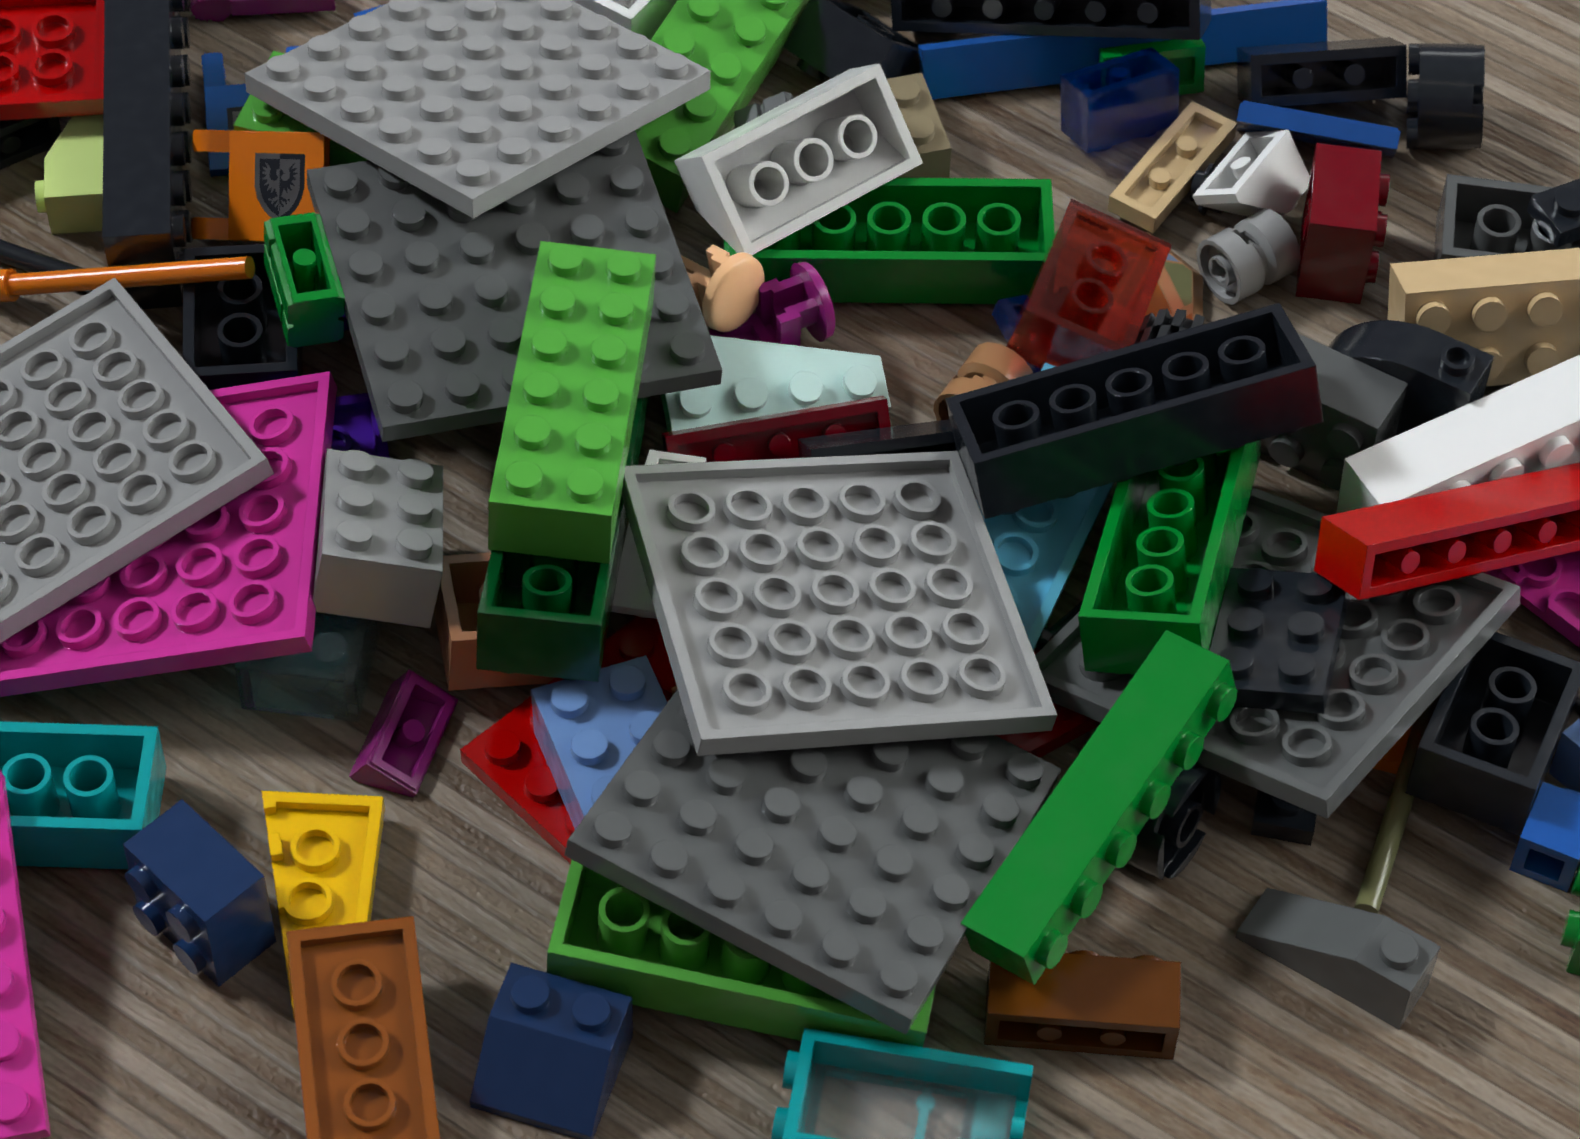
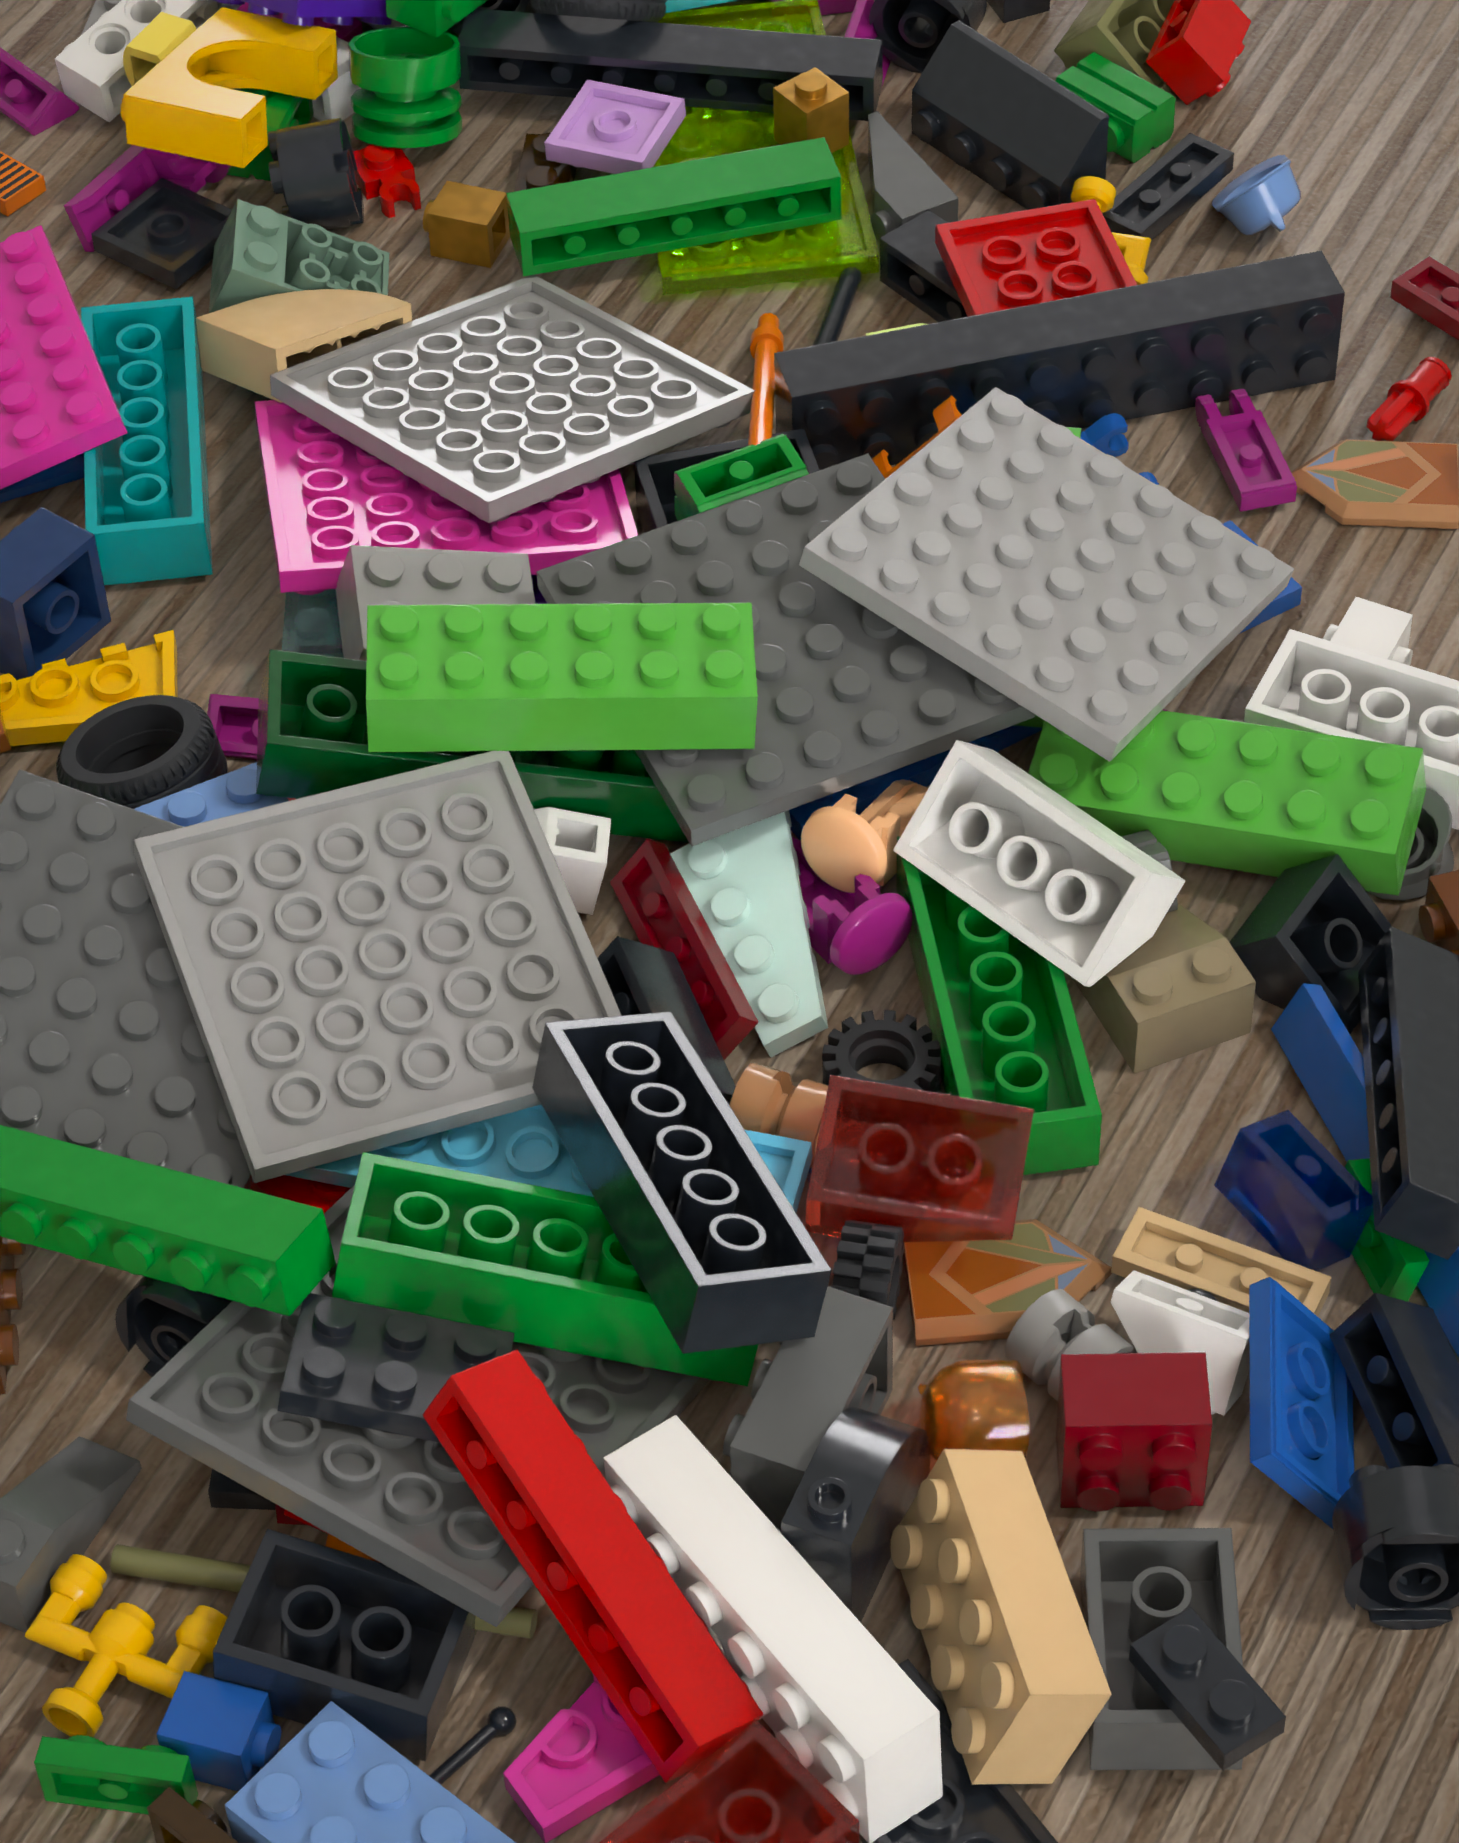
camera: 85 degrees right, 5 degrees down
(441, 770) = (142, 751): none -> black tyre
(933, 310) = (884, 1043): none -> black tyre
(1312, 299) = (975, 1407): none -> clear orange helmet
(1469, 903) = (113, 1646): none -> yellow piece

